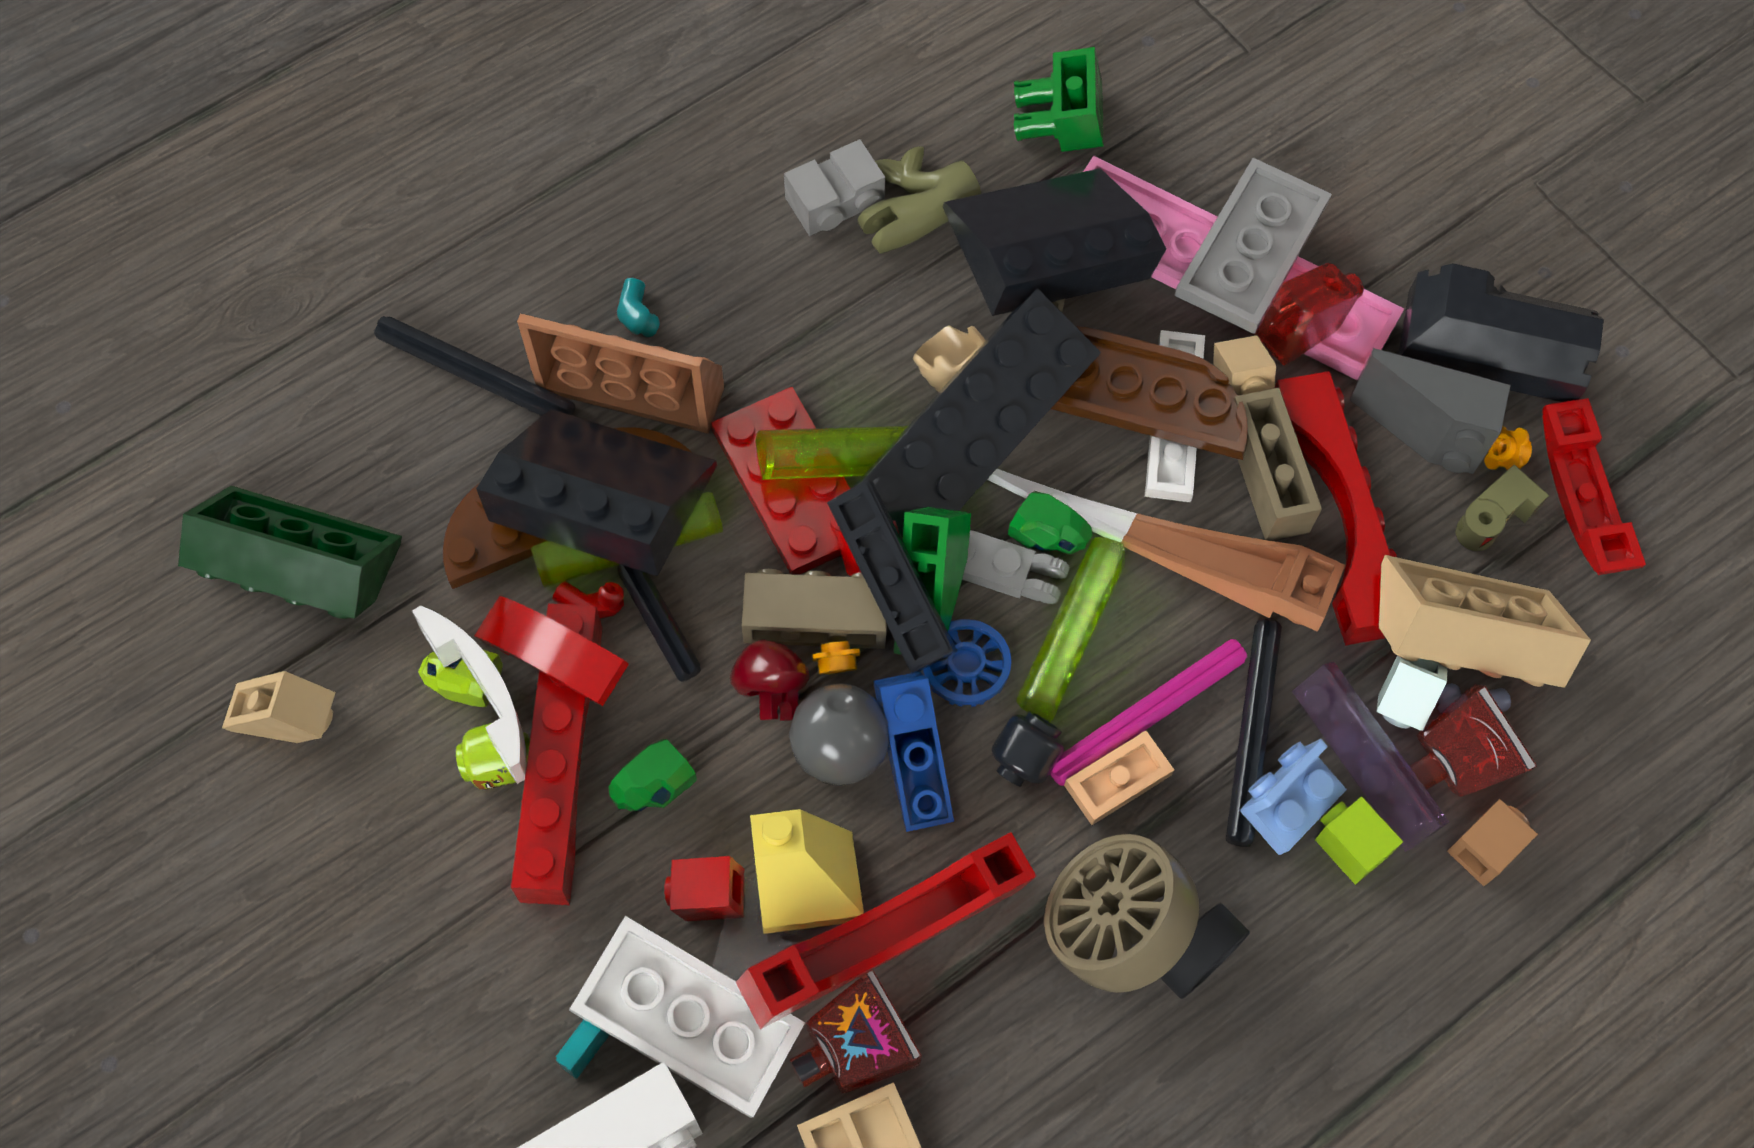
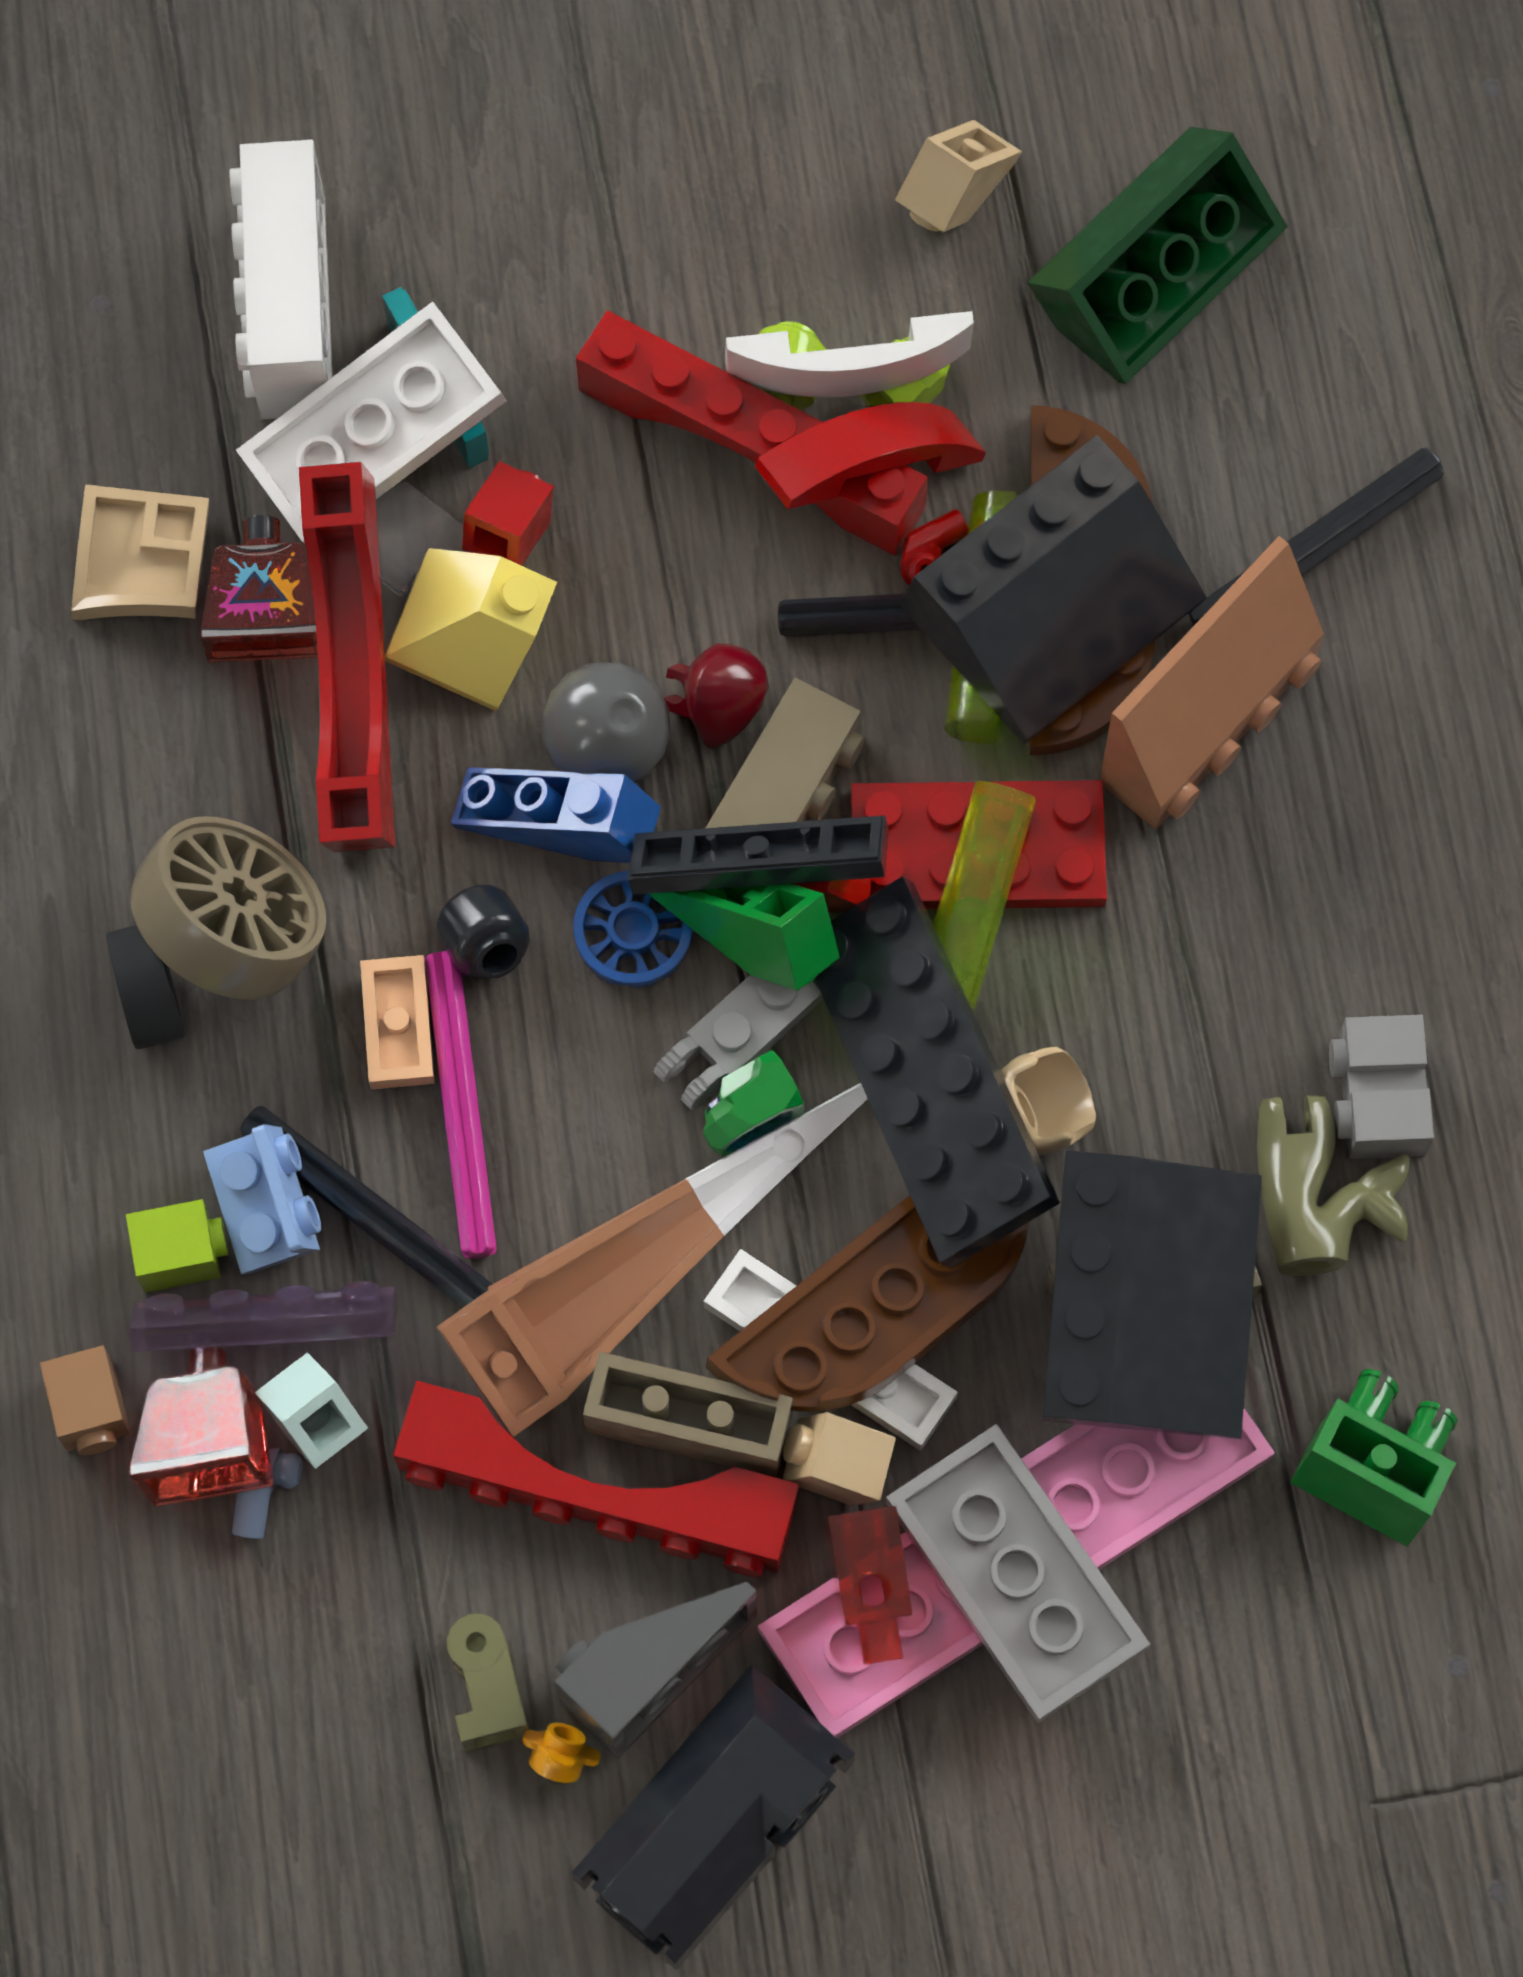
camera: 120 degrees right, 5 degrees up
(632, 311) = (1315, 758): teal arm -> none
(652, 778) = (668, 522): green rock -> none
(836, 658) = (709, 778): light orange plate -> none
(1072, 628) = (607, 1068): clear neon green brick -> none
(1478, 623) = (345, 1530): tan slope -> none
(1584, 488) = (448, 1823): red slope -> none

